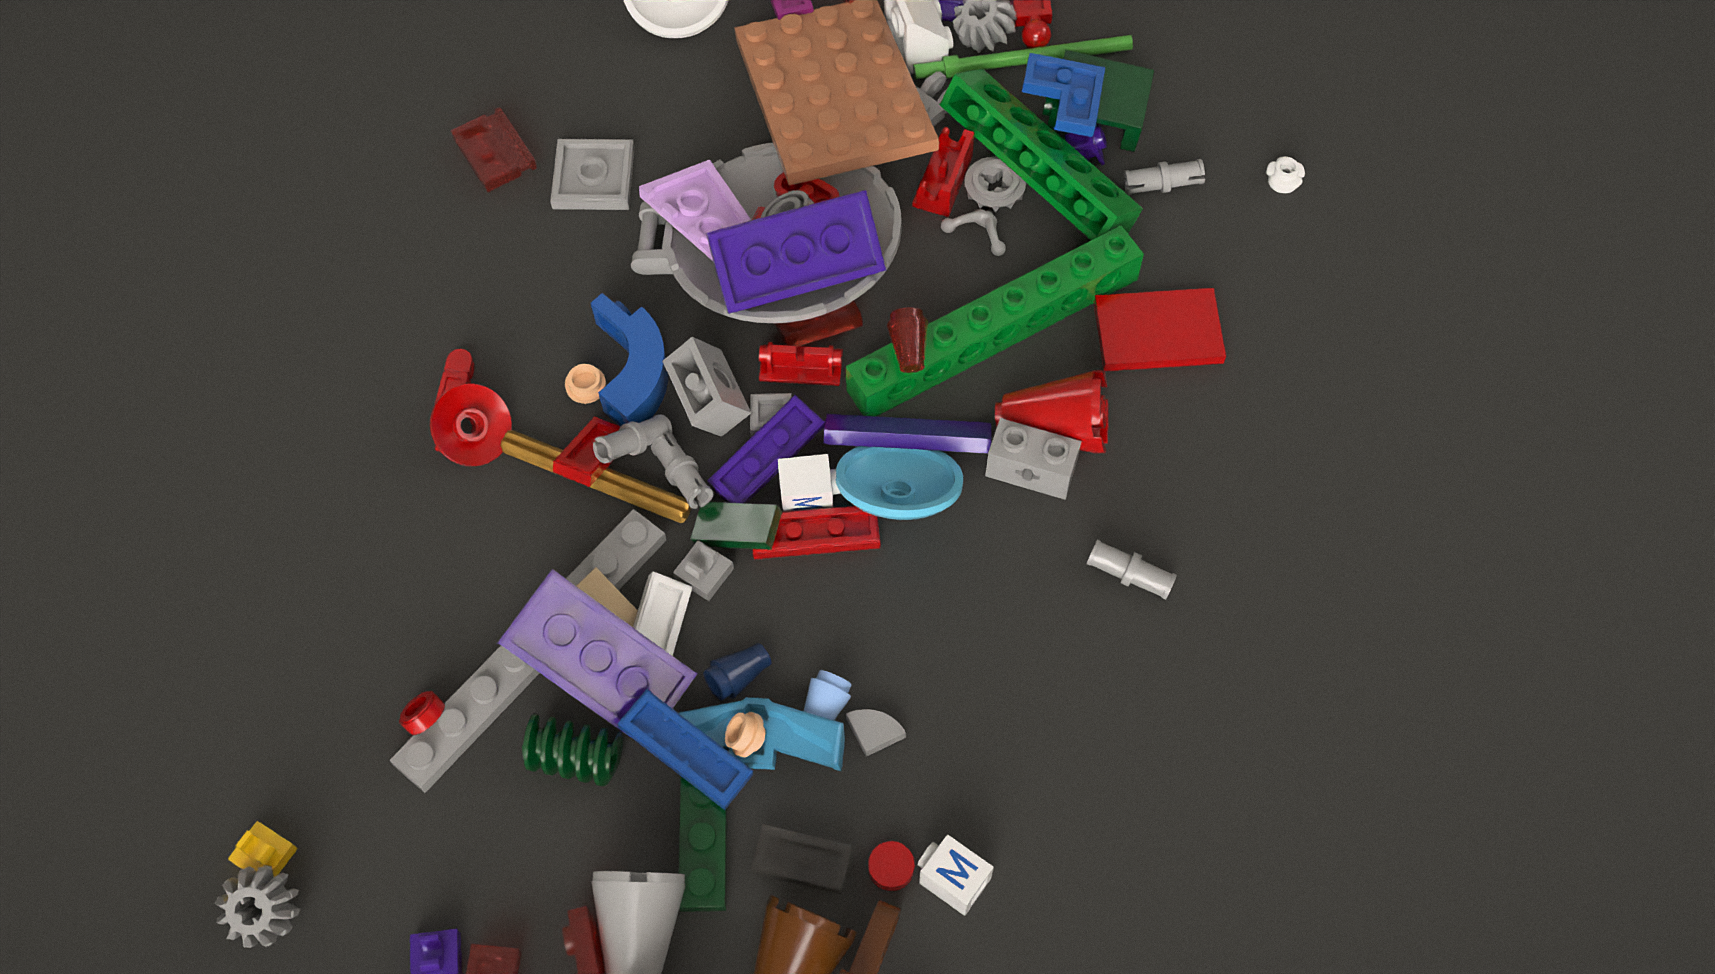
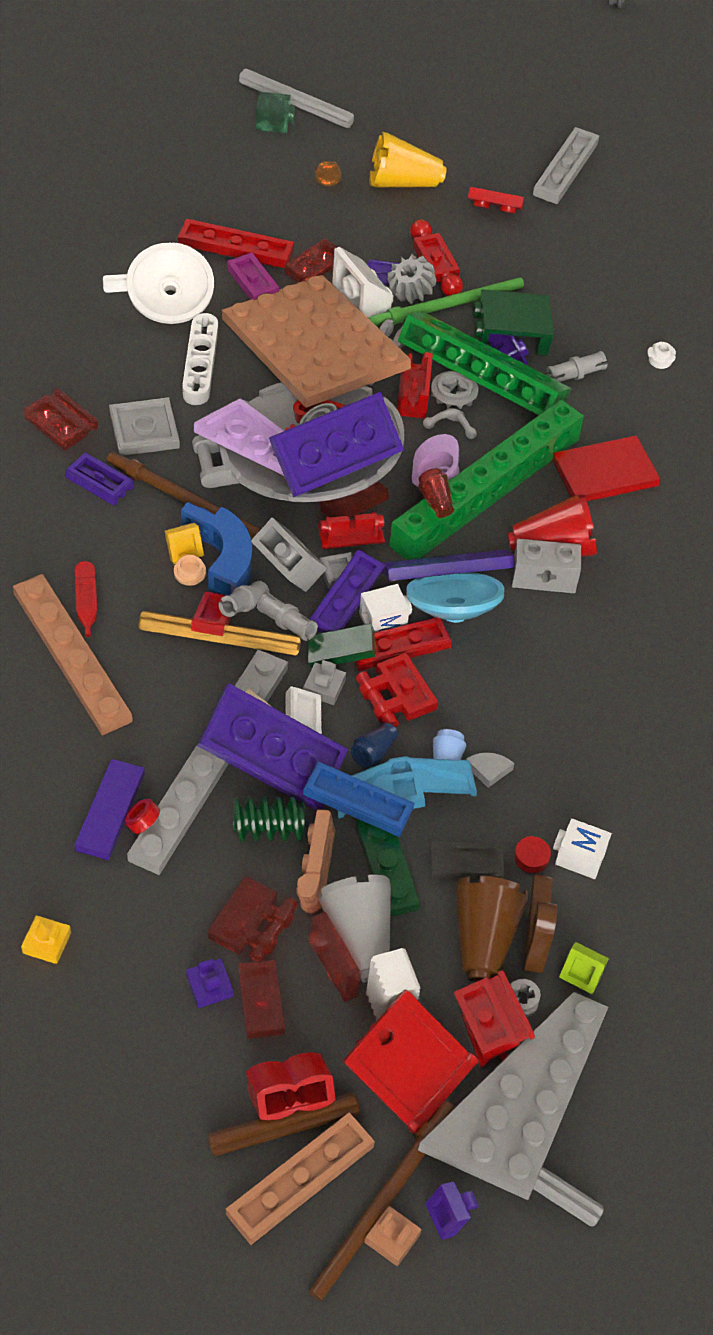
camera: 20 degrees left, 10 degrees down
(245, 915) = (51, 979): light grey gear -> none
(389, 691) = (109, 809): none -> dark purple tile
(411, 473) = (72, 654): none -> nougat plate
(489, 424) = (121, 606): red dish -> none
(505, 873) = (243, 915): none -> clear red plate
(534, 257) = (95, 481): none -> dark purple tile
(566, 236) = (138, 471): none -> reddish brown bar
(587, 345) = (184, 541): none -> yellow tile
(614, 820) = (316, 863): none -> nougat hinge
(686, 90) = (200, 358): none -> white beam
(745, 733) = (401, 779): light nougat plate -> none
(801, 596) = (406, 686): none -> red plate
(935, 284) = (437, 452): none -> lavender piece
(1074, 84) = (498, 309): blue plate -> none
(1131, 569) = (640, 628): light grey pin -> none

